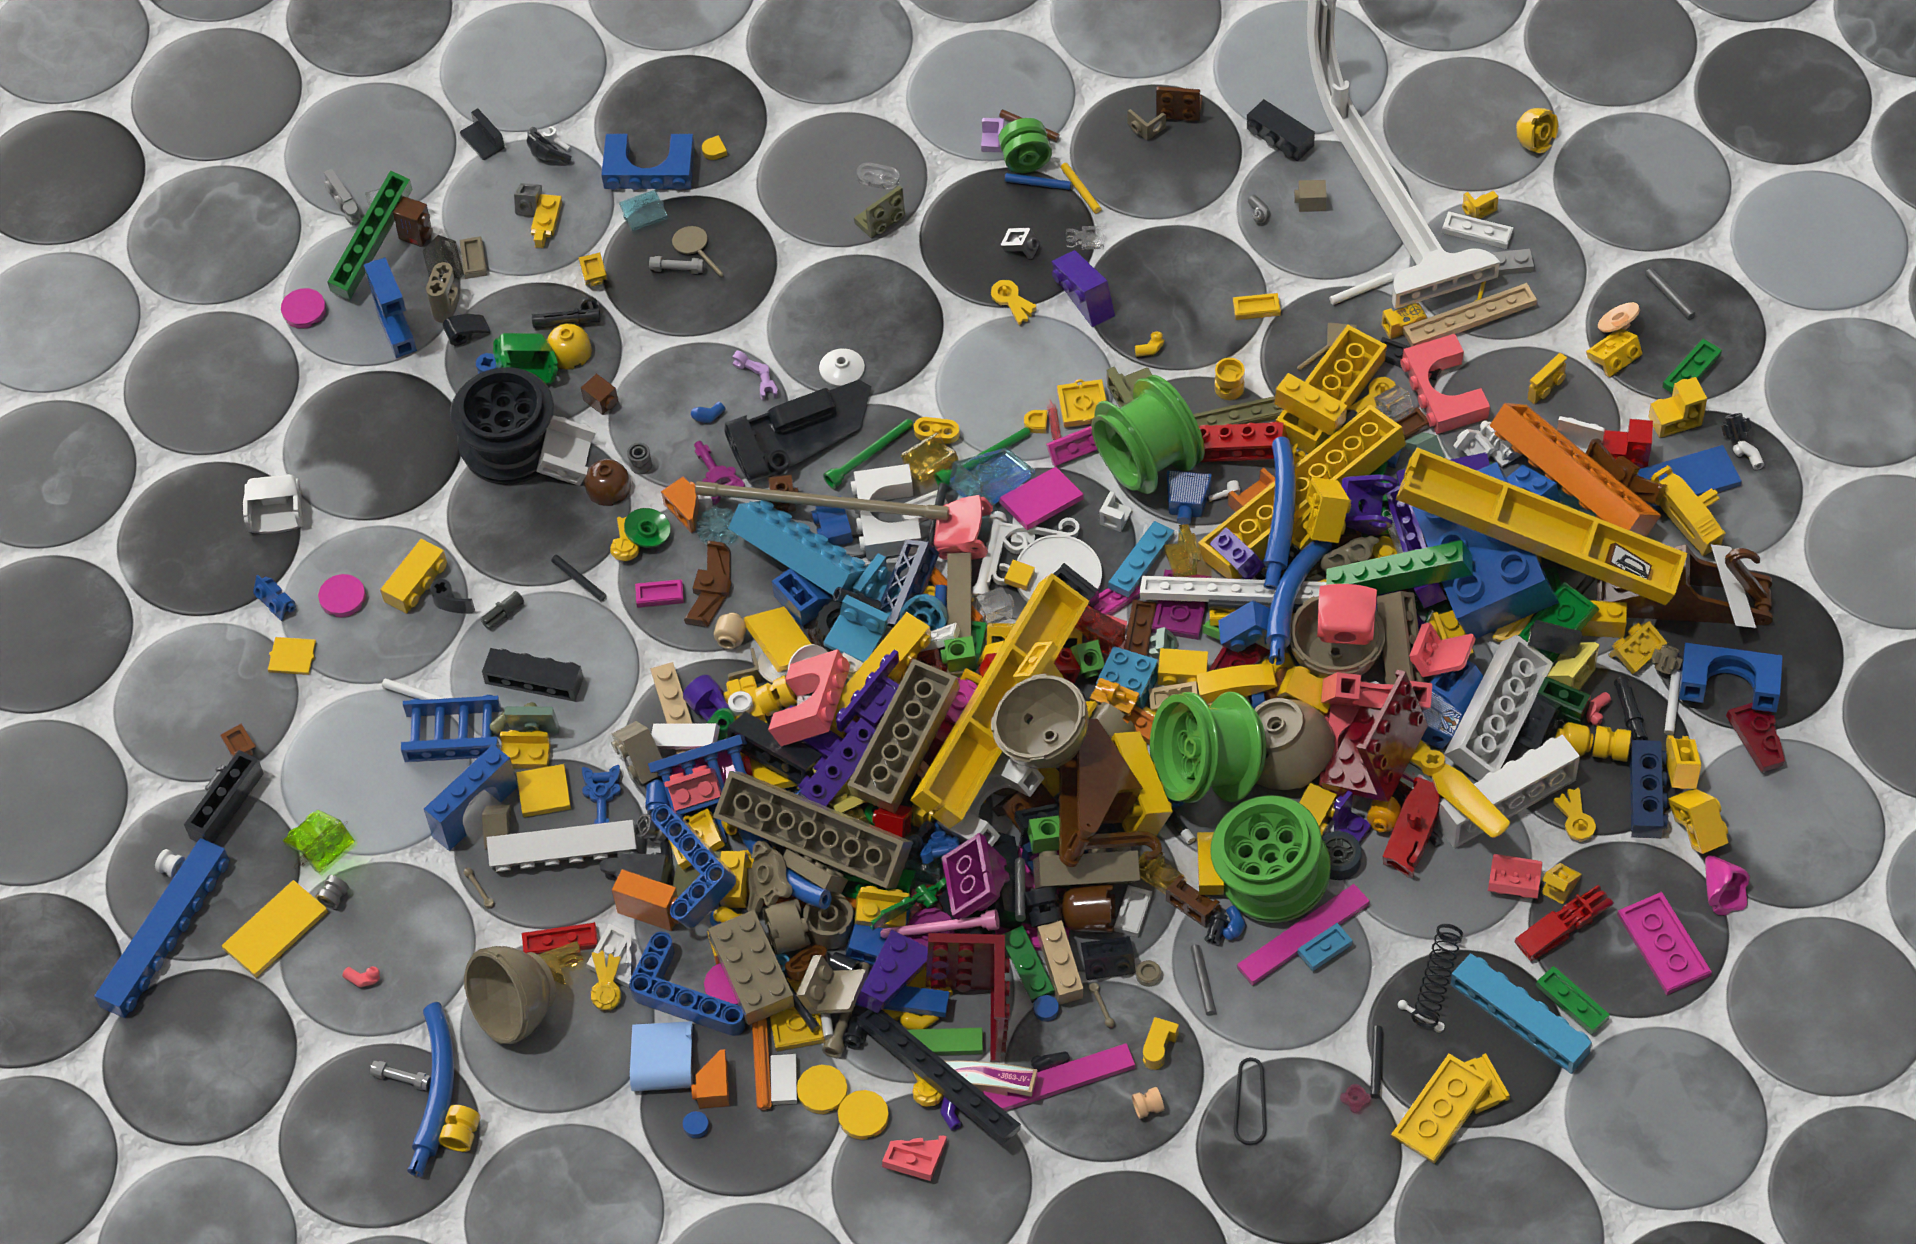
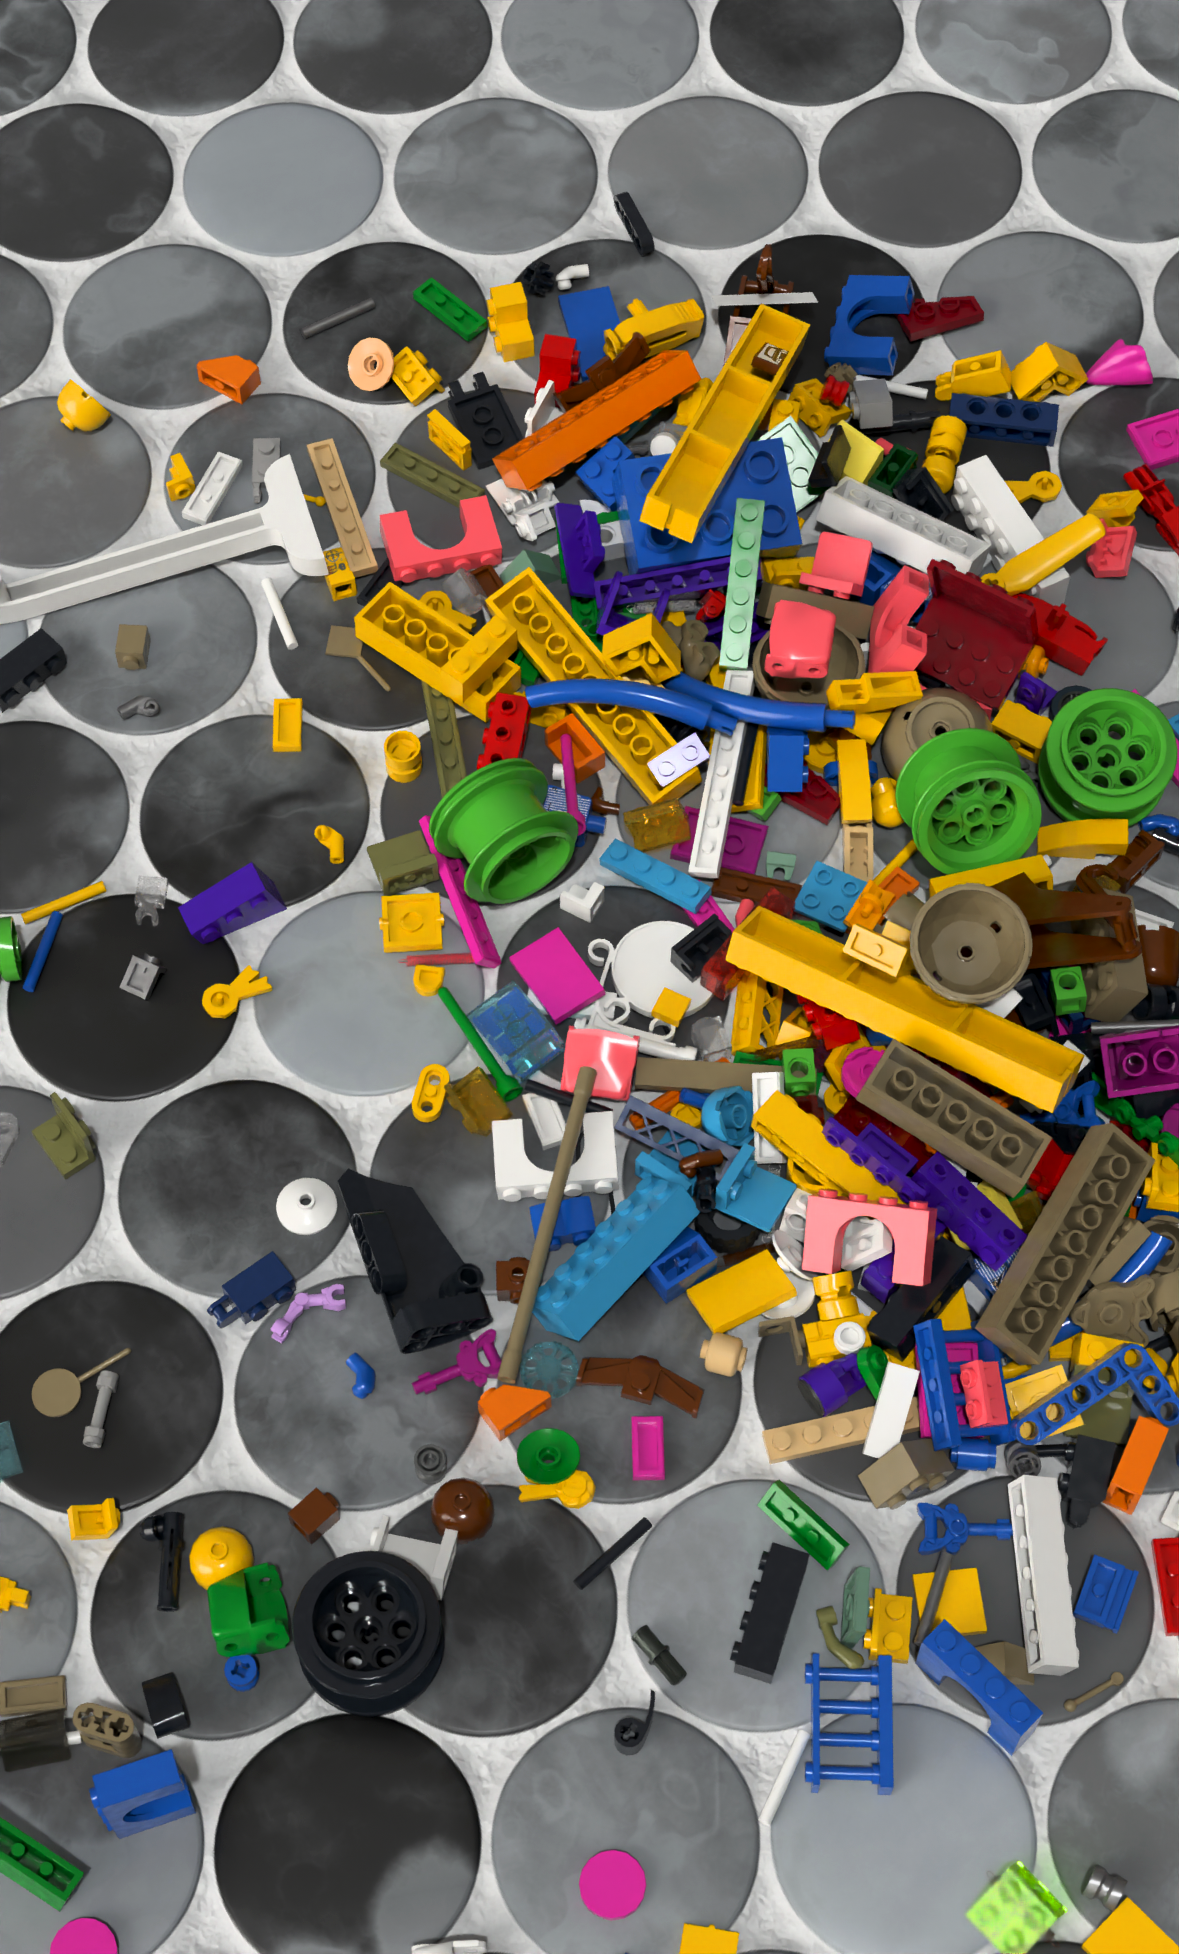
camera: 90 degrees left, 5 degrees up
(414, 576) = (595, 1776): yellow brick -> none
(545, 775) = (934, 1597): none -> flat silver bar
(551, 890) = (1105, 1594): none -> blue plate
(600, 691) = (803, 1524): none -> green plate
(768, 340) = (254, 1292): none -> dark blue brick
(834, 477) = (489, 1219): green piece -> none
(880, 594) = (701, 1159): none -> reddish brown arm
(980, 645) = (783, 1045): none -> reddish brown piece
(1168, 485) = (570, 782): none -> dark pink piece
(1181, 666) = (817, 841): yellow brick -> none
(1205, 519) = (601, 806): none -> reddish brown animal
(1305, 673) = (874, 691): none -> yellow slope
(1514, 374) = (429, 475): none -> olive tile
(1580, 401) = (483, 419): none -> black tile
(1588, 226) = (230, 376): none -> orange slope
(1637, 680) = (871, 403): none -> light grey brick
(1644, 648) = (834, 390): none -> red wheel
(1816, 493) = (634, 223): none -> black beam

